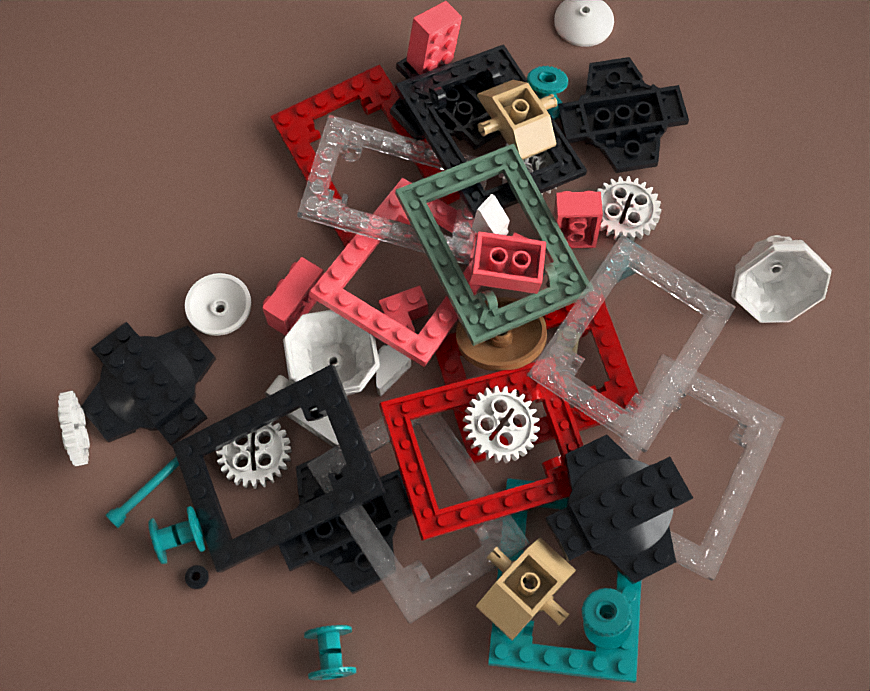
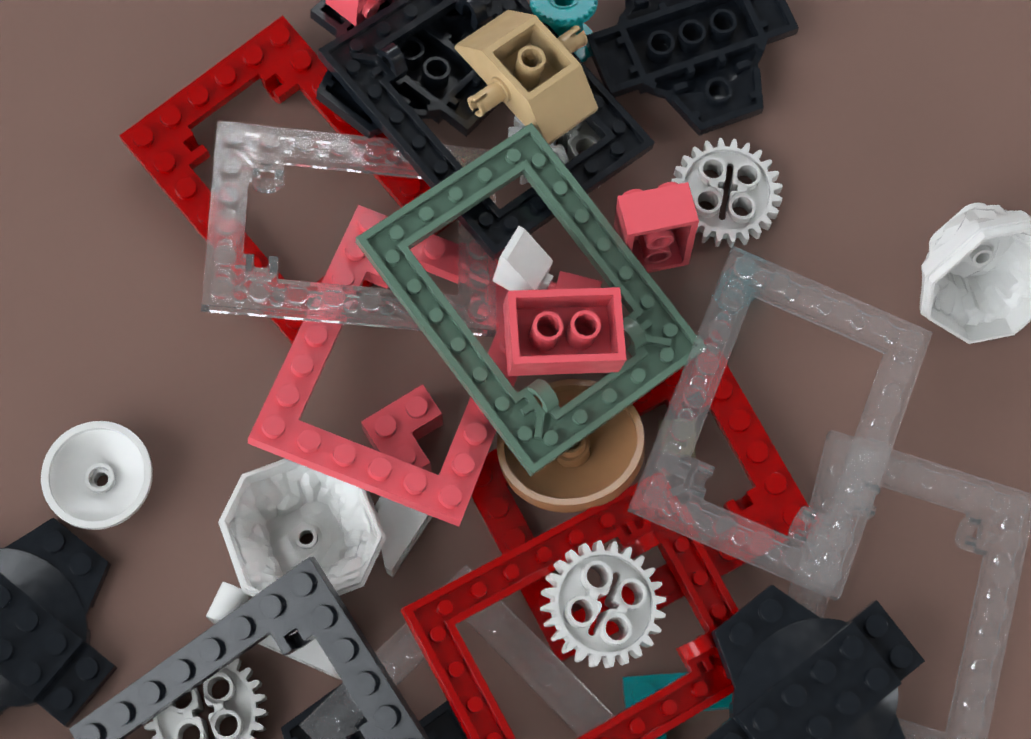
camera: 15 degrees left, 5 degrees up
(292, 296) = (219, 440): coral brick -> none

